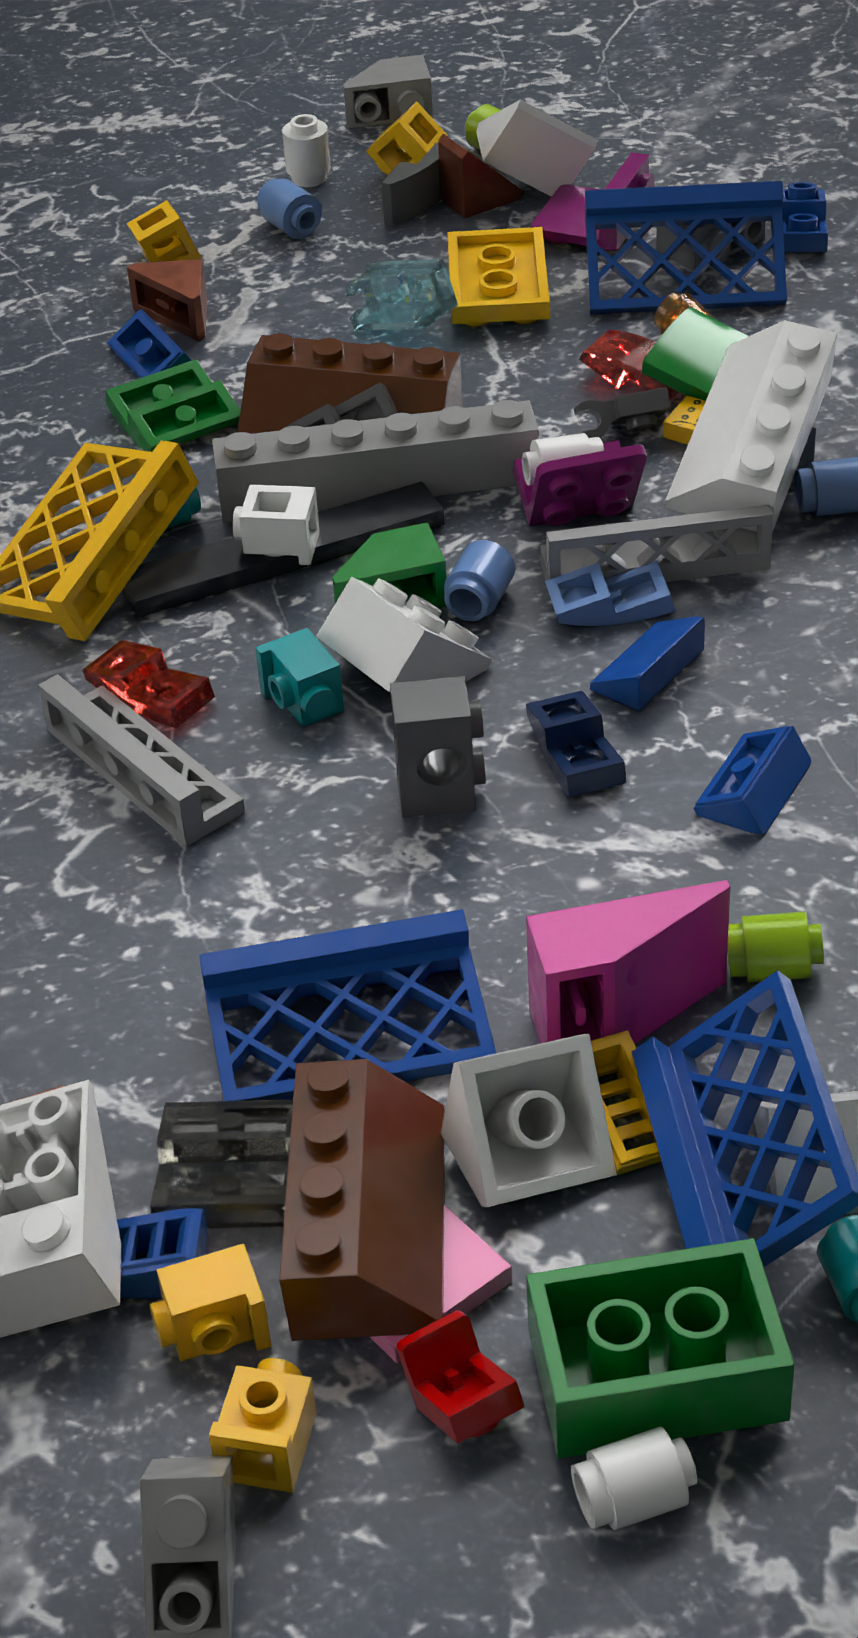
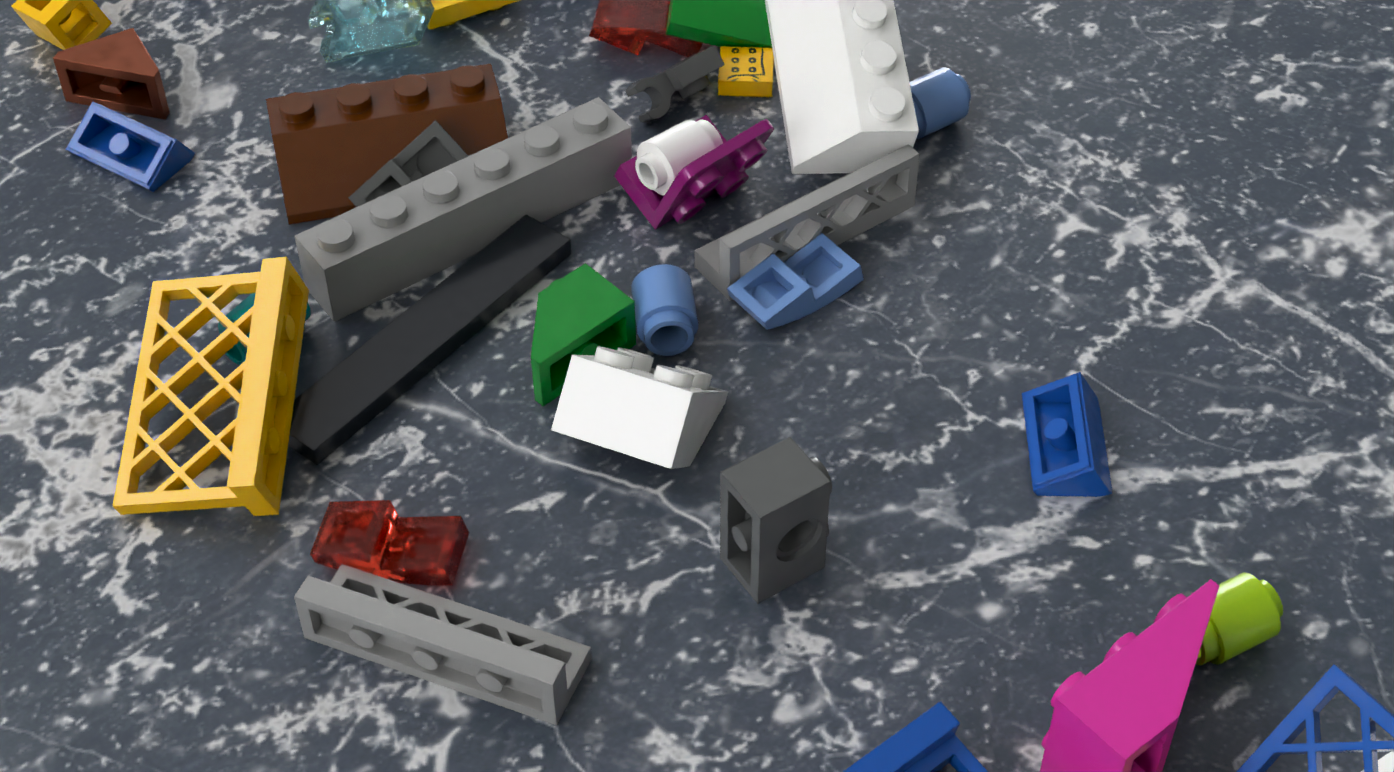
camera: 30 degrees left, 5 degrees up
(172, 406) = (195, 206): green slope -> none
(278, 521) = (426, 309): white brick -> none
(300, 676) = (561, 481): teal brick -> none
(575, 744) = (869, 455): dark blue slope -> none
(651, 662) = (882, 343): blue slope -> none

